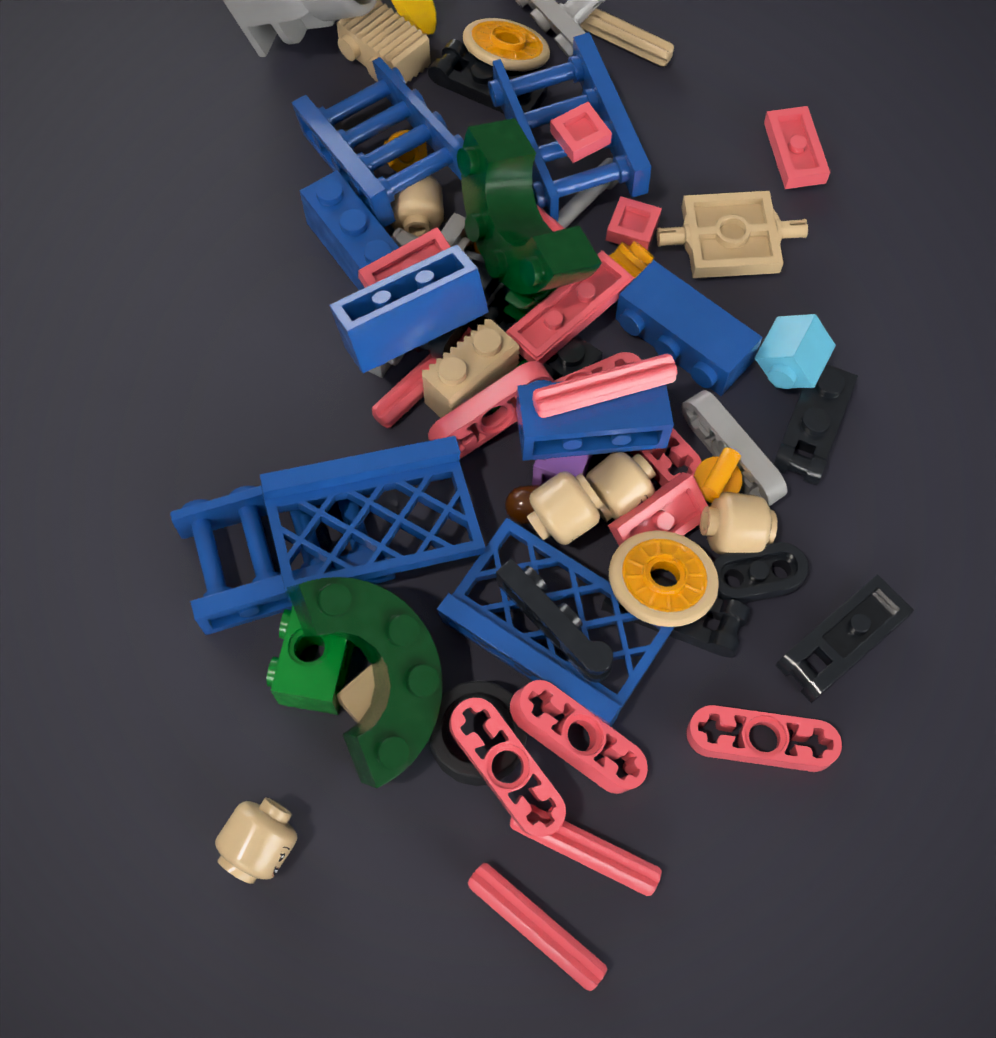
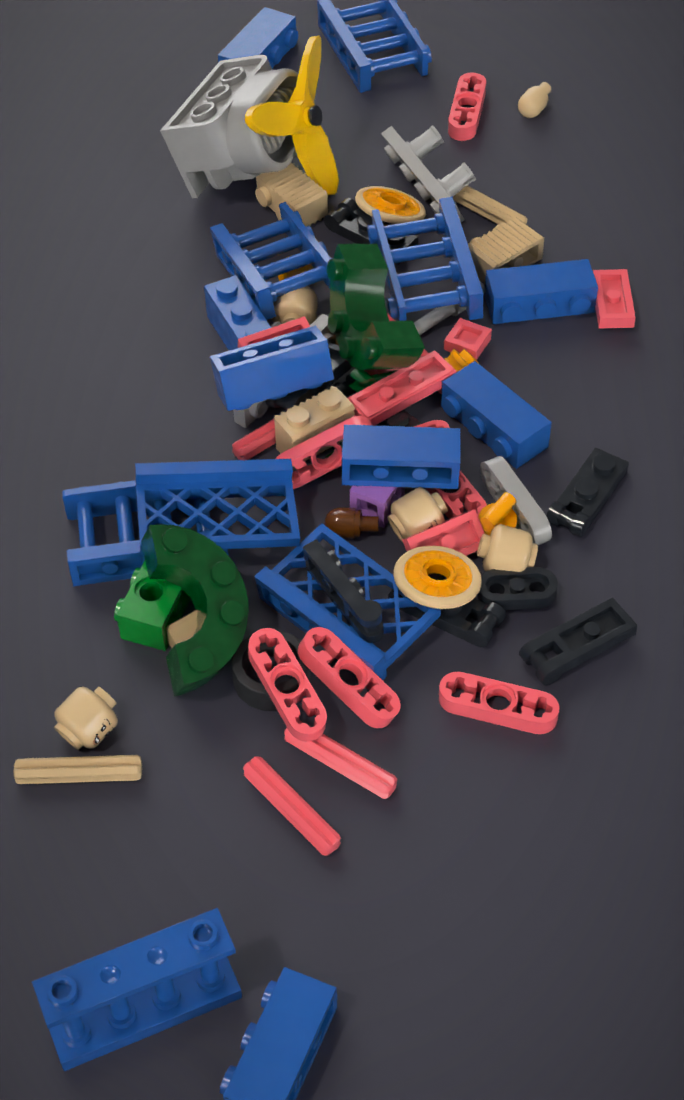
camera: 10 degrees right, 15 degrees down
(257, 912) = (78, 769): none -> tan axle
(564, 507) = (367, 519): tan head -> none
(580, 132) = (431, 264): coral plate -> none
(604, 385) = (410, 428): coral axle -> none
(659, 94) = (506, 247): none -> tan brick
(711, 147) = (540, 291): none -> blue brick
(732, 234) = (546, 354): tan plate -> none
(795, 351) = (578, 437): medium azure brick -> none

